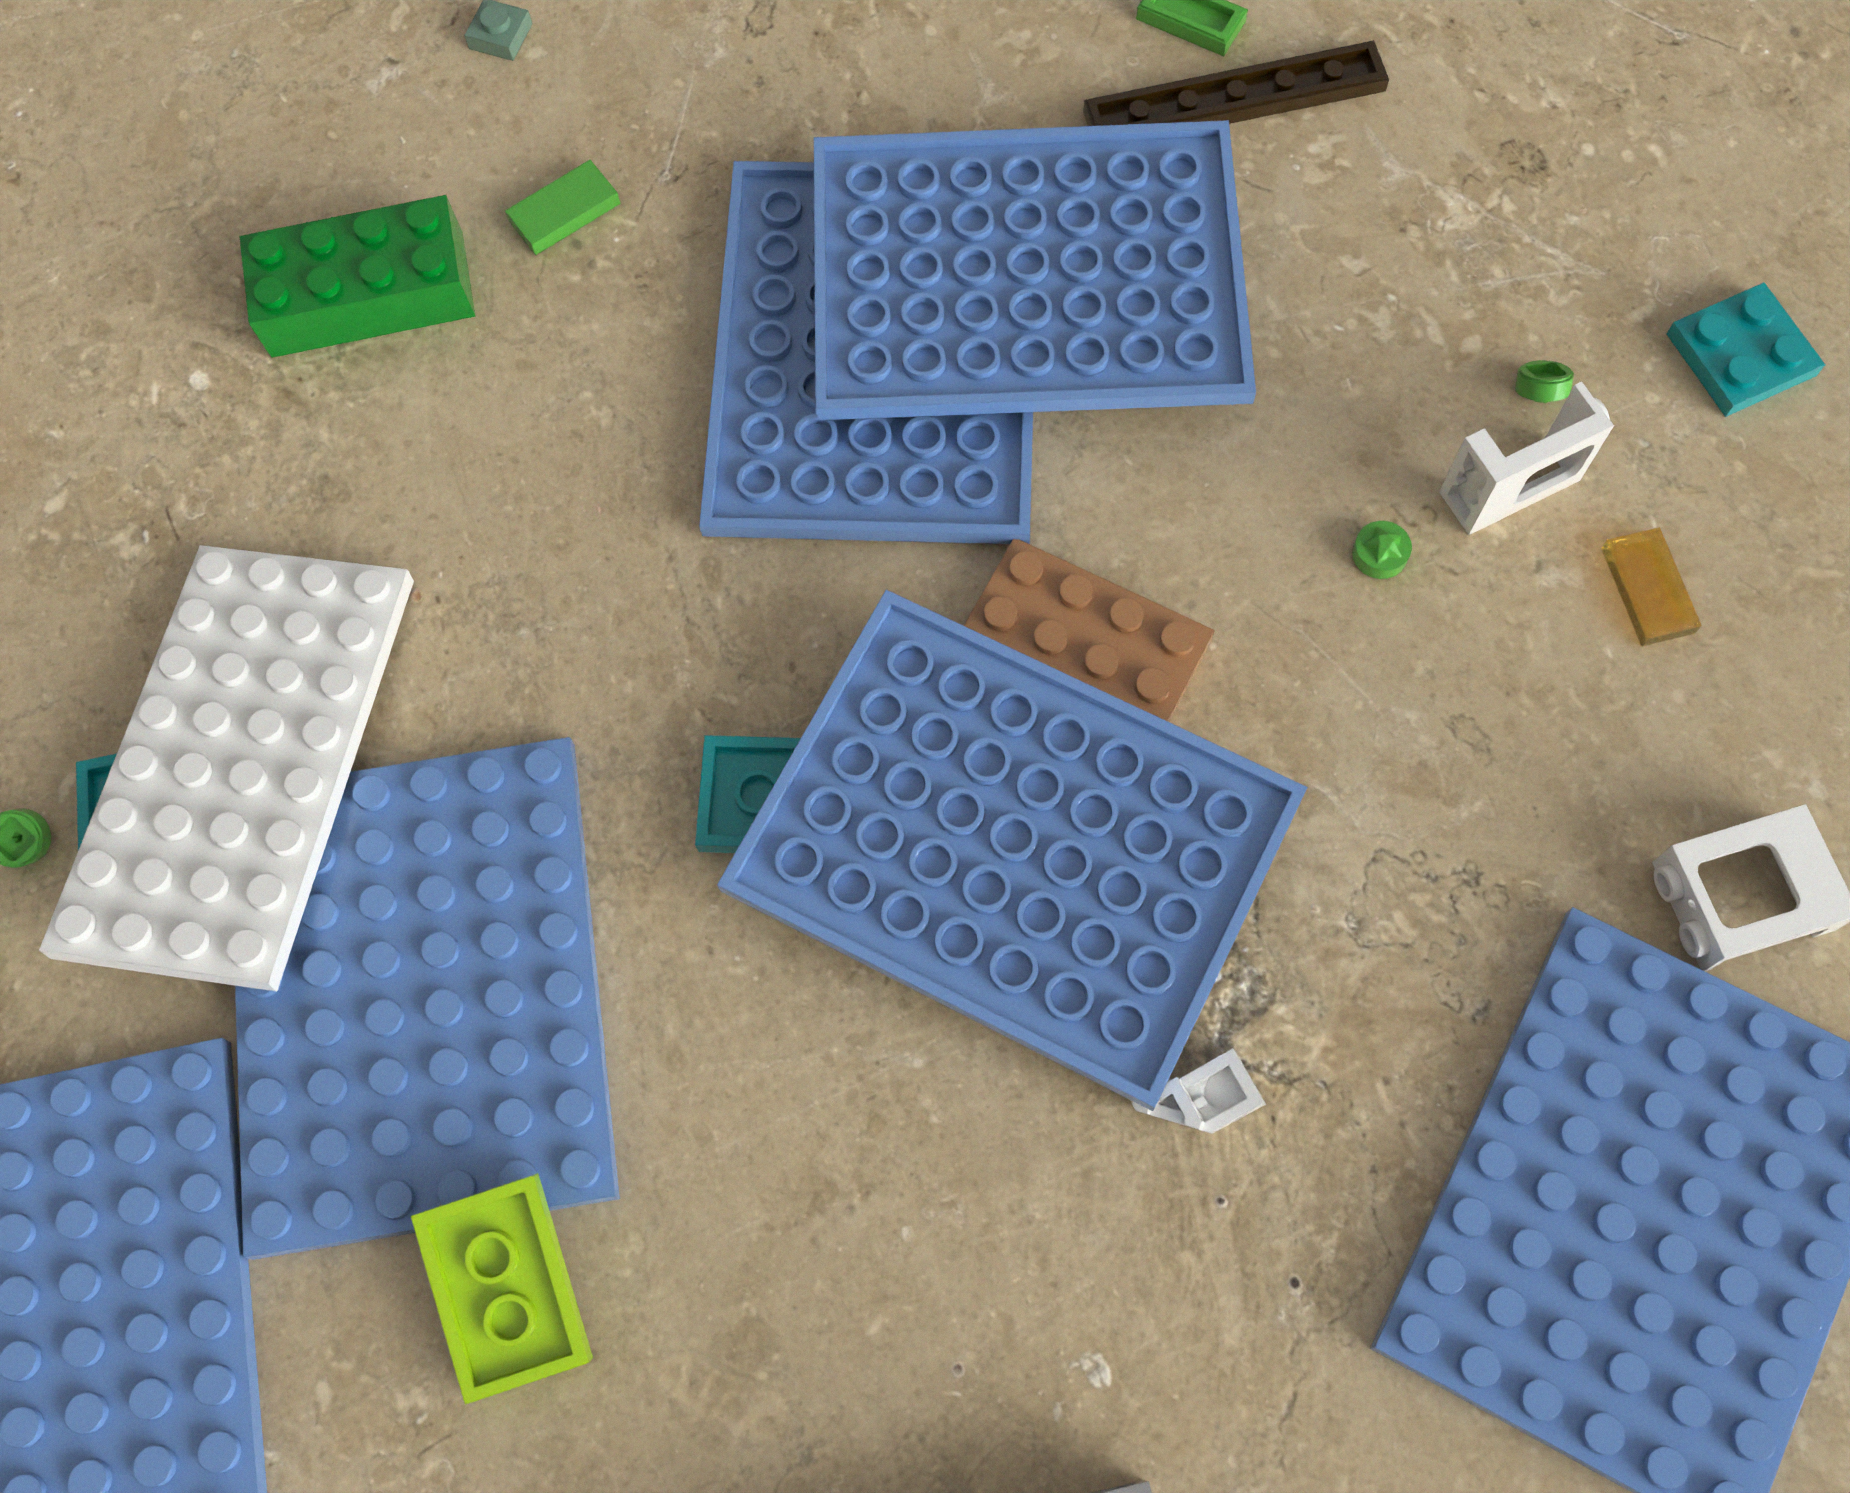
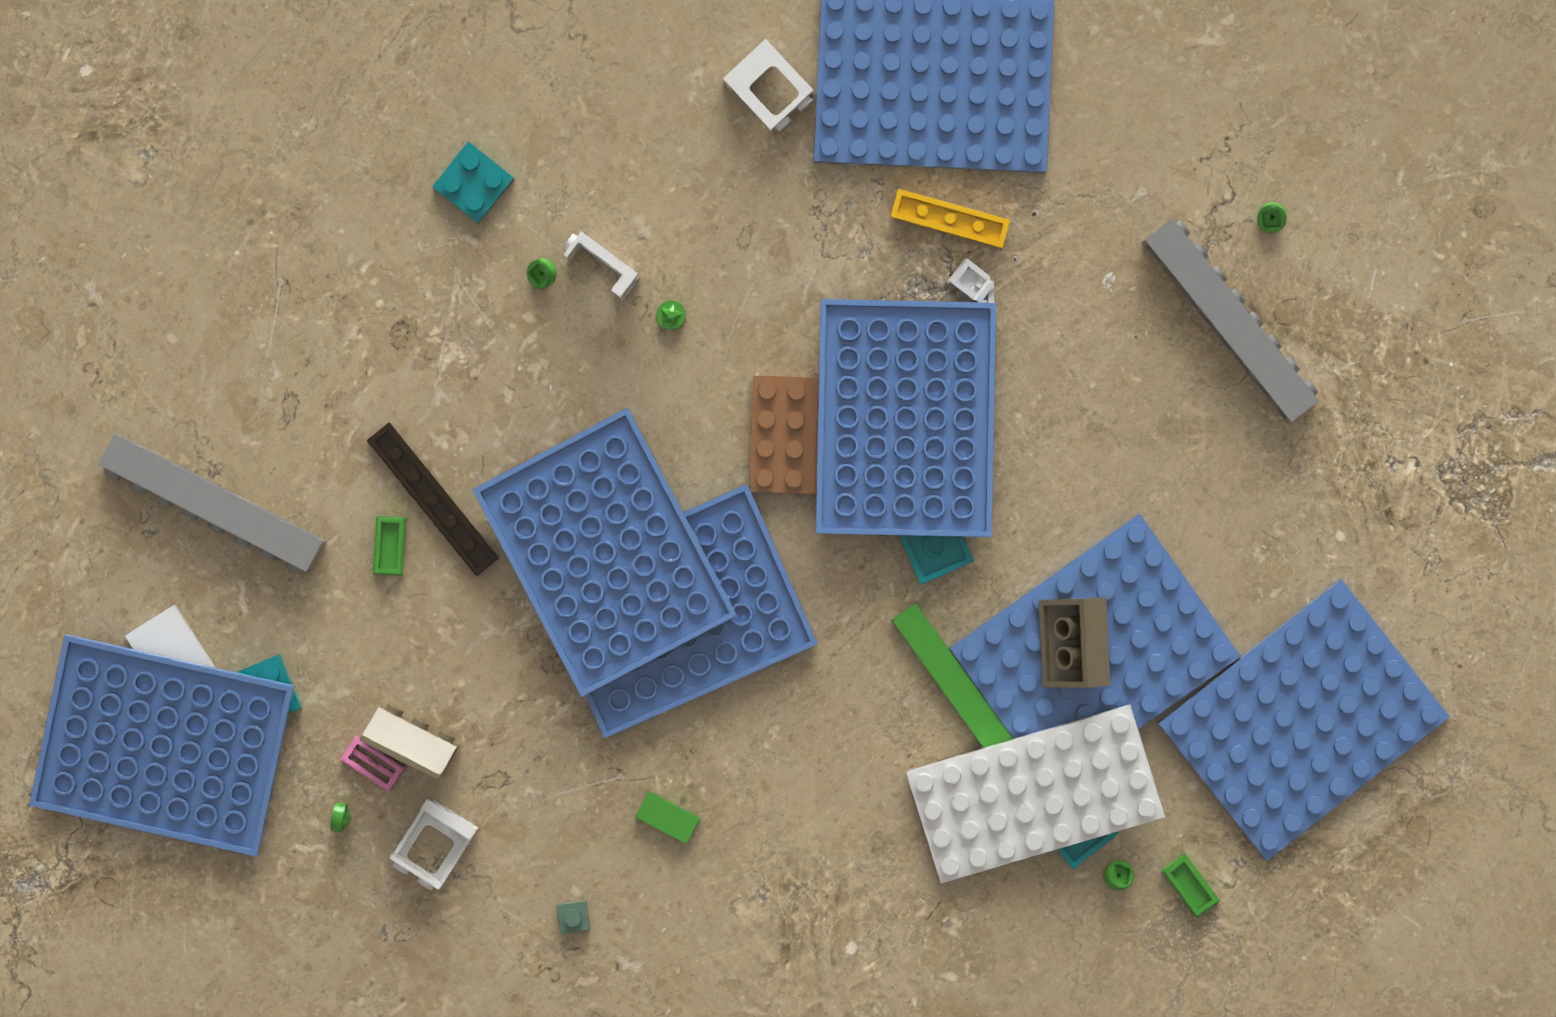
camera: 120 degrees left, 20 degrees up
(356, 276) = (763, 894): green brick -> none
(442, 945) = (1074, 642): none -> dark tan slope
(501, 1288) = (1199, 538): lime plate -> none
(524, 716) = (951, 677): none -> bright green tile
(1356, 1109) = (950, 218): none -> yellow plate
(1651, 586) = (630, 182): clear yellow tile -> none

